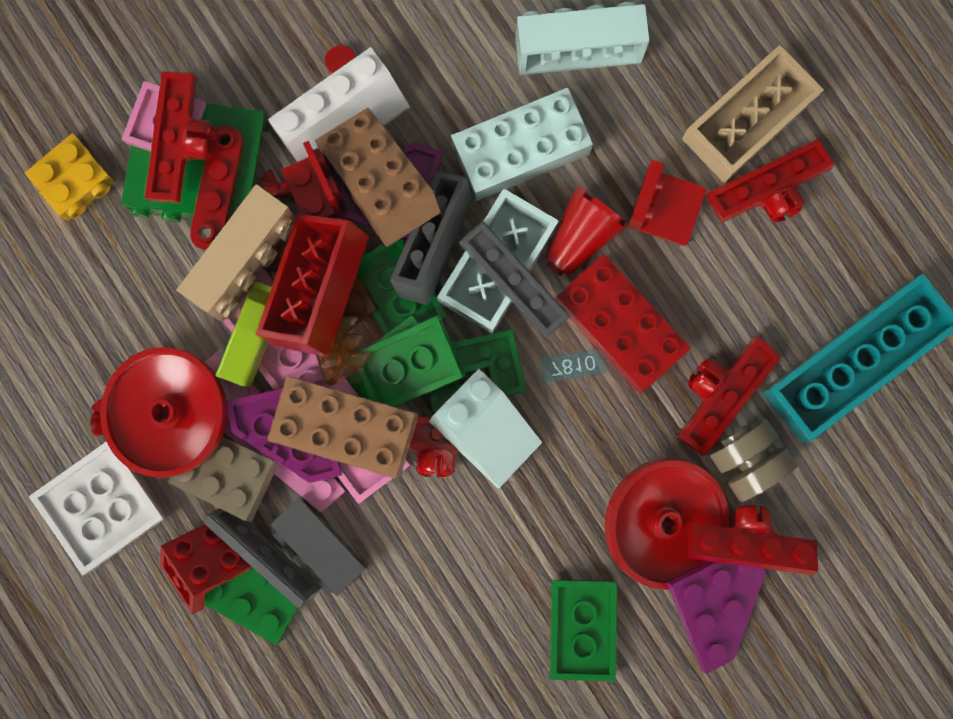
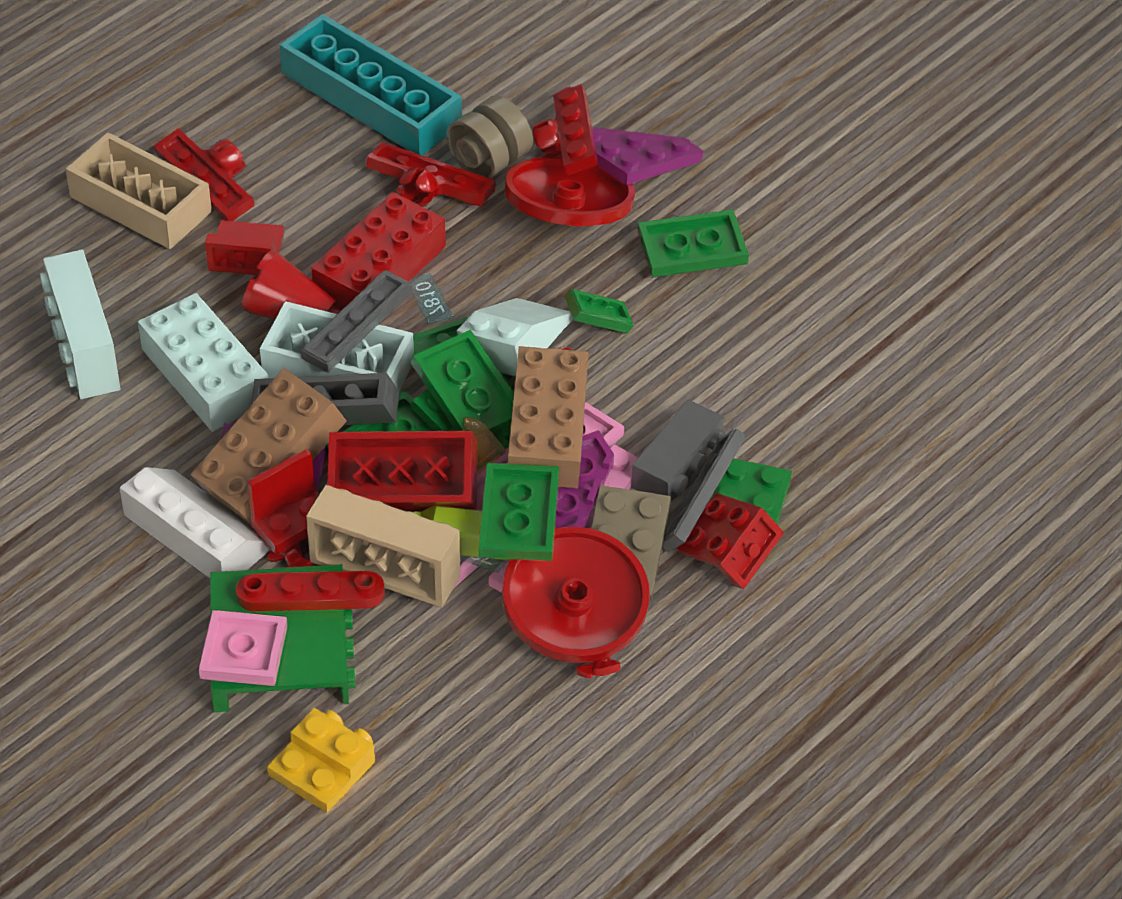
camera: 105 degrees left, 35 degrees down
(96, 508) = (698, 651): white plate -> none
(176, 137) = (263, 612): red plate -> none
(234, 375) = (519, 512): none -> green plate
(338, 57) = (133, 537): red tile -> none
(504, 514) = (598, 311): none -> green plate

